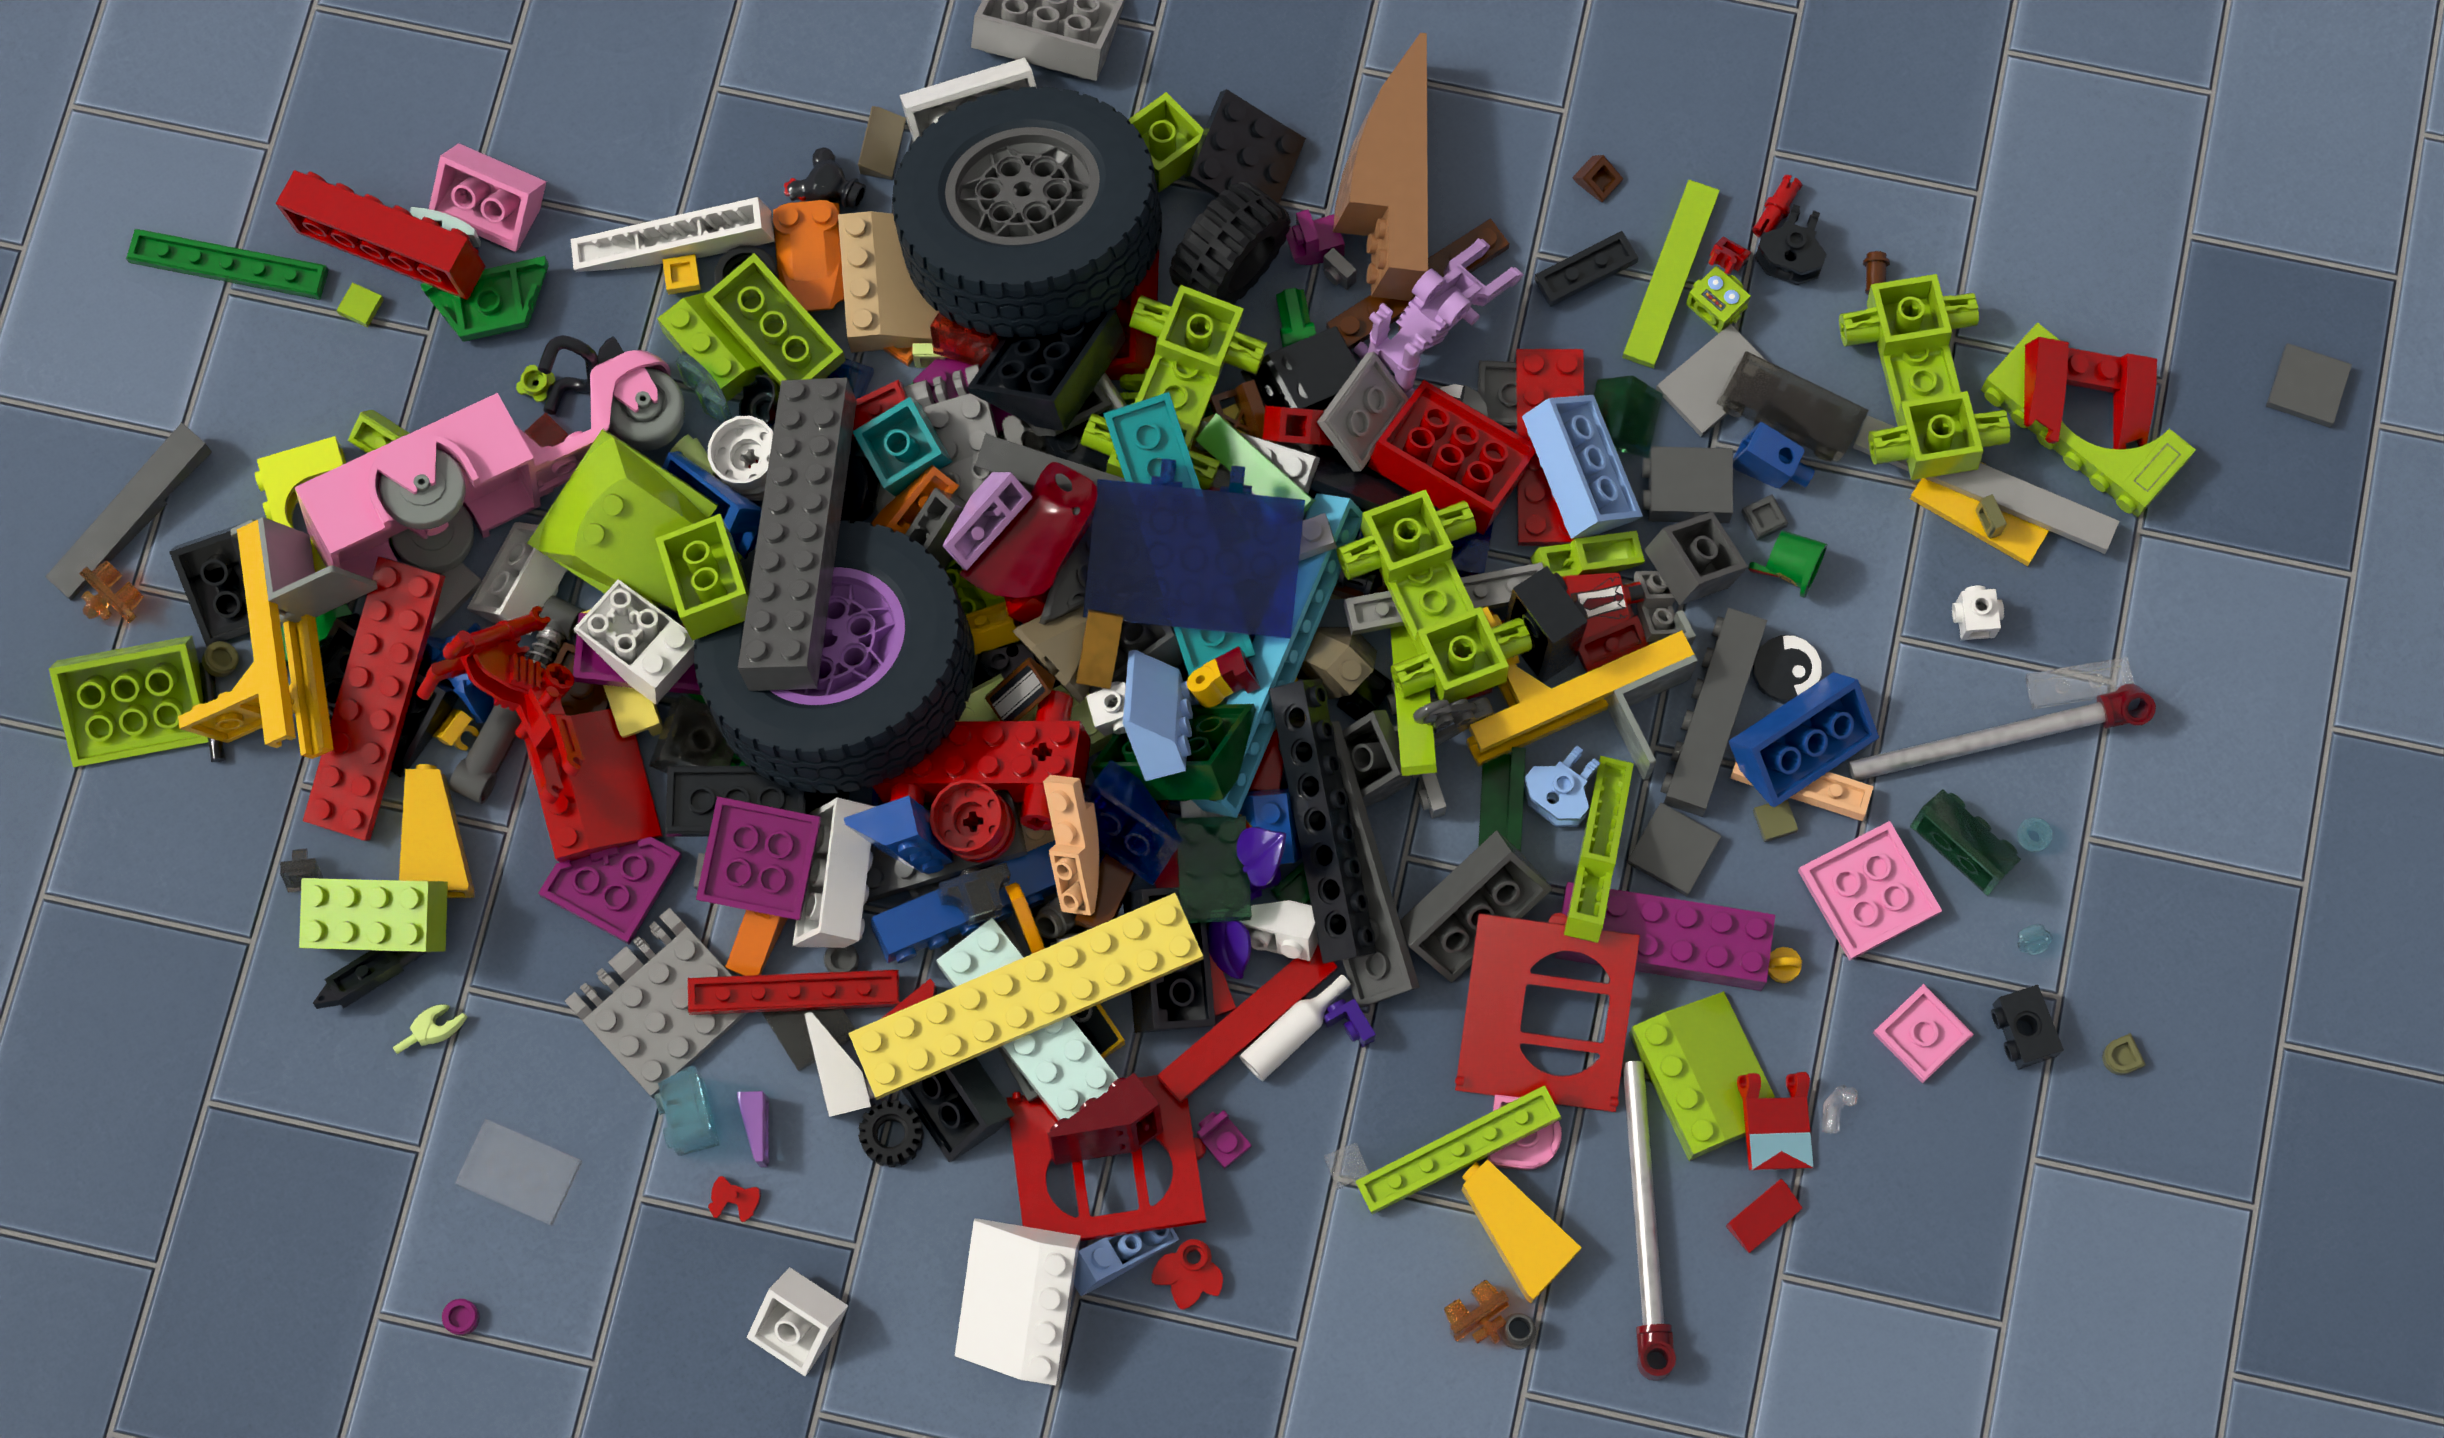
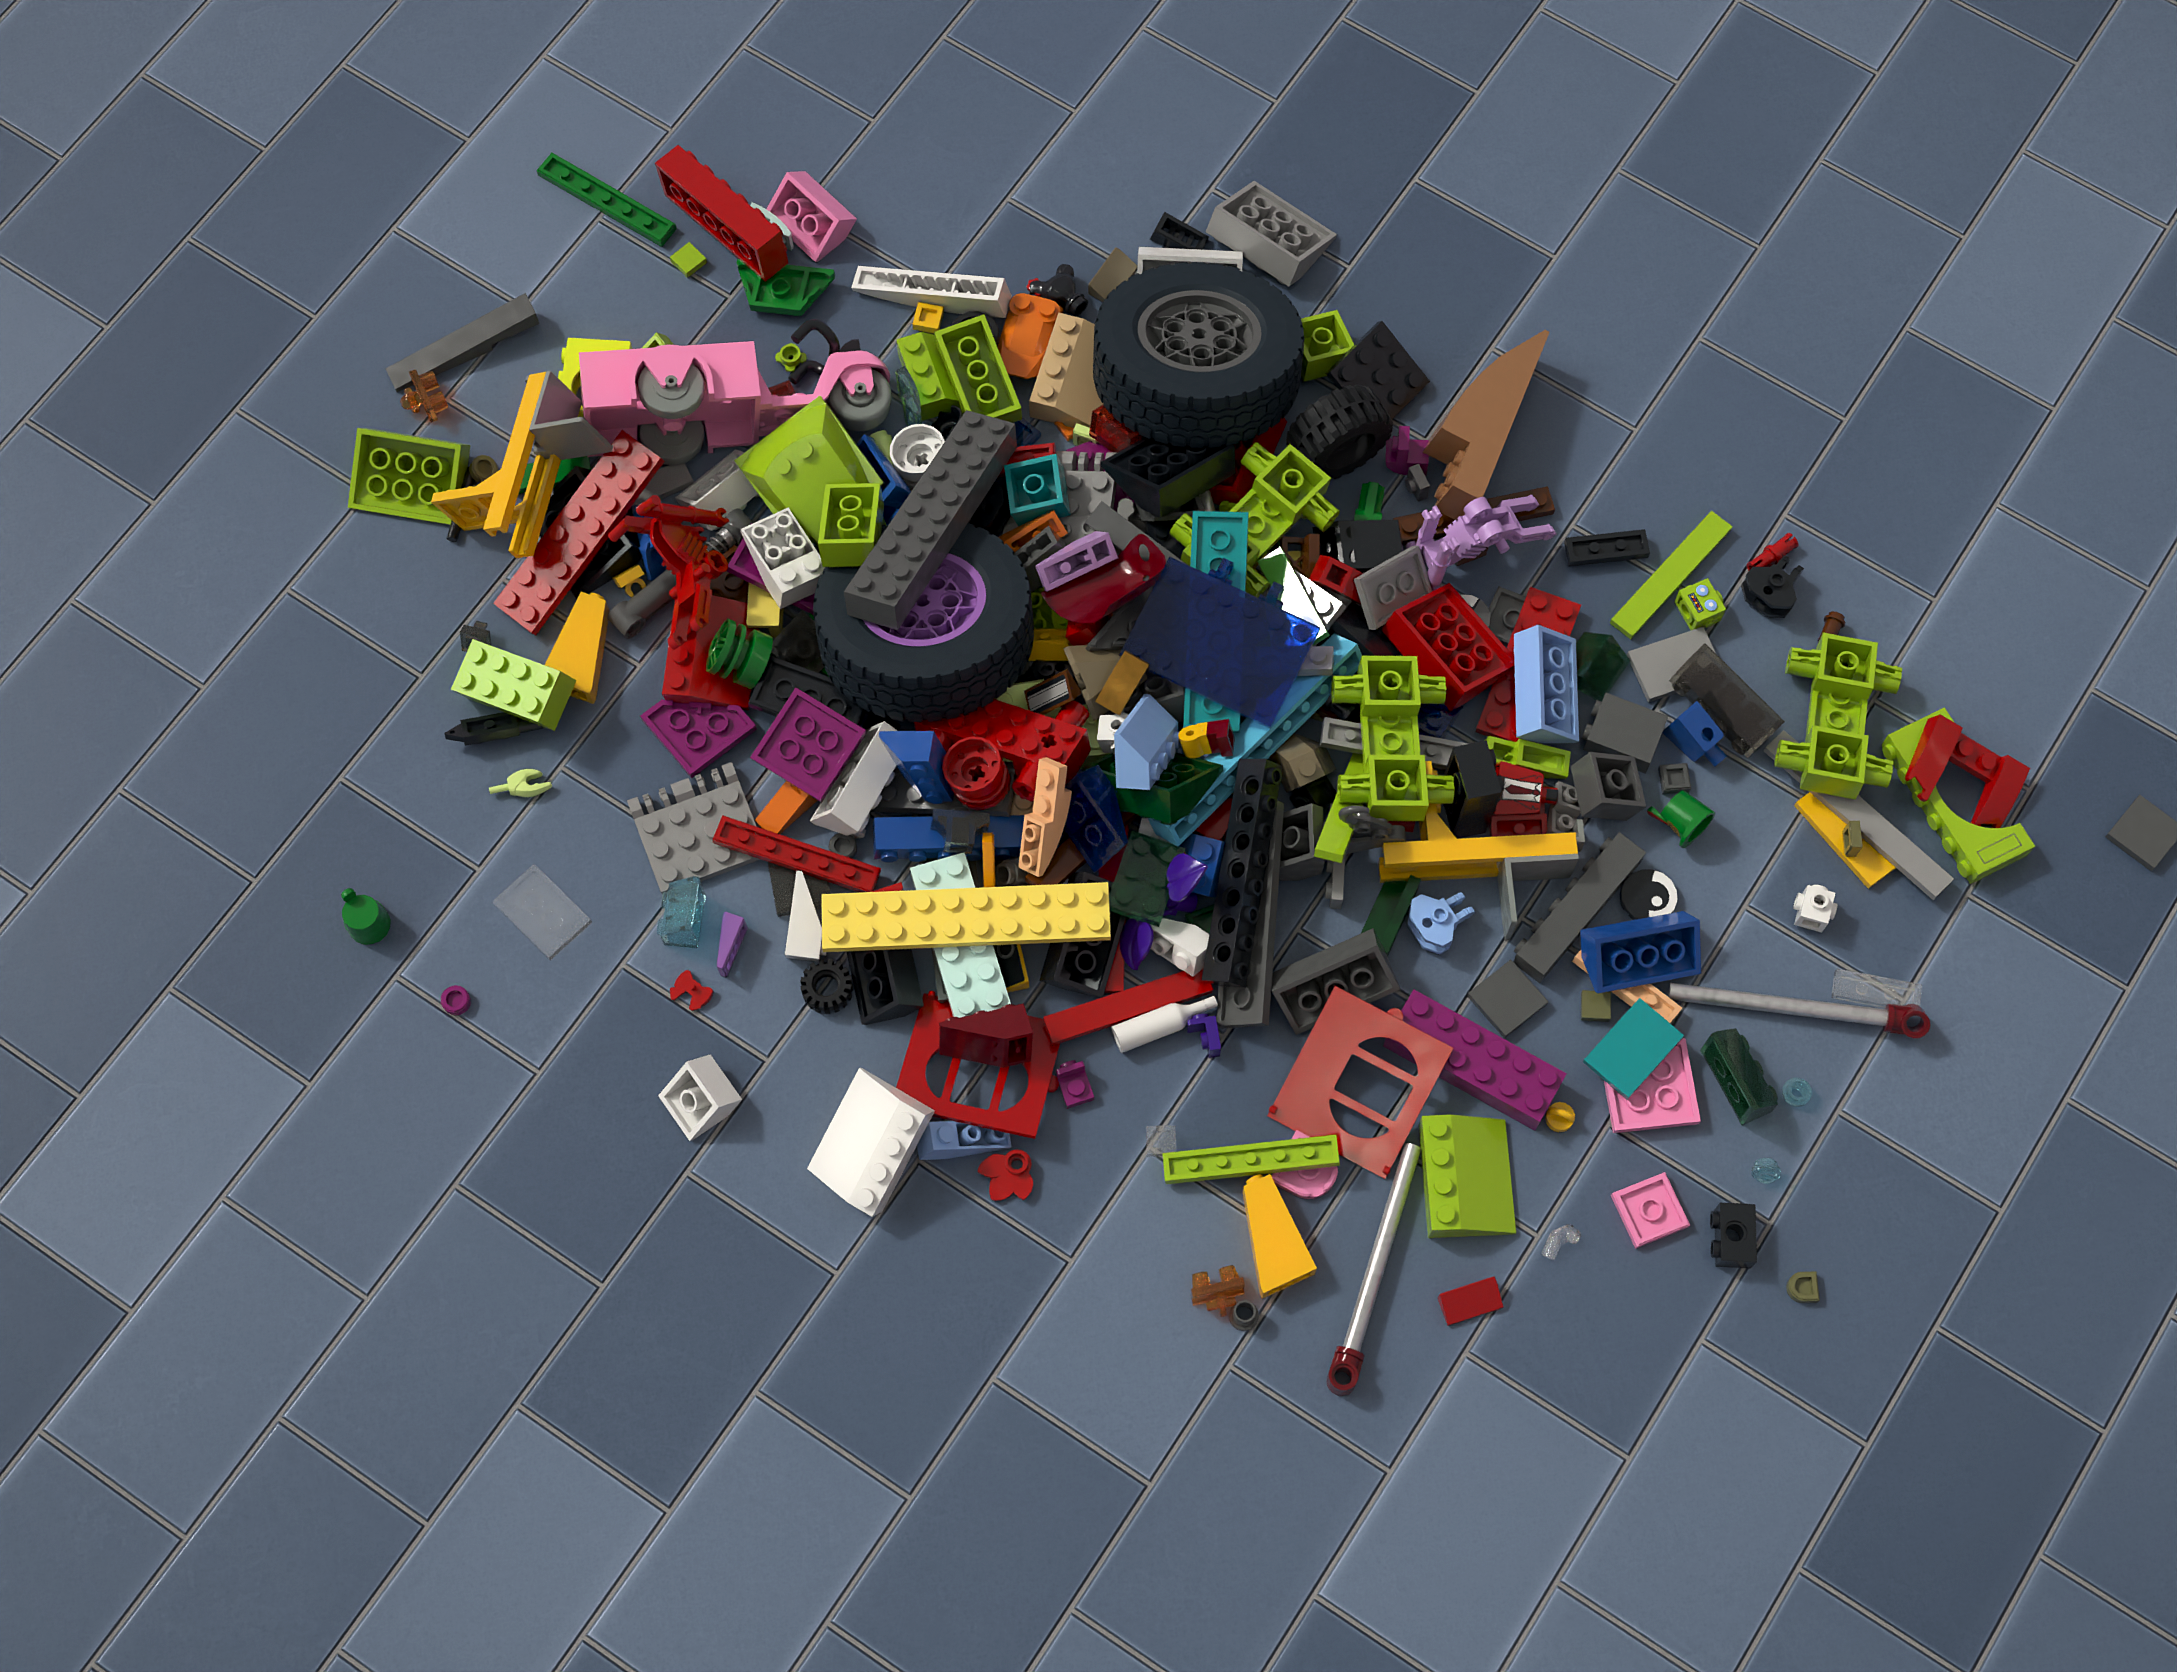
camera: 20 degrees right, 5 degrees down
(214, 584) = (496, 413): black slope -> none
(312, 1261) = (364, 918): none -> green hat
(630, 777) = (732, 651): none -> green wheel
(938, 74) = (1175, 225): none -> black slope
(1598, 177) = (1642, 486): reddish brown slope -> none
(1599, 849) = (1447, 974): lime slope -> none
(1729, 255) = (1721, 575): red plate -> none
(1777, 1127) = (1505, 1237): red flag -> none
(1837, 856) = (1633, 1048): none -> teal tile

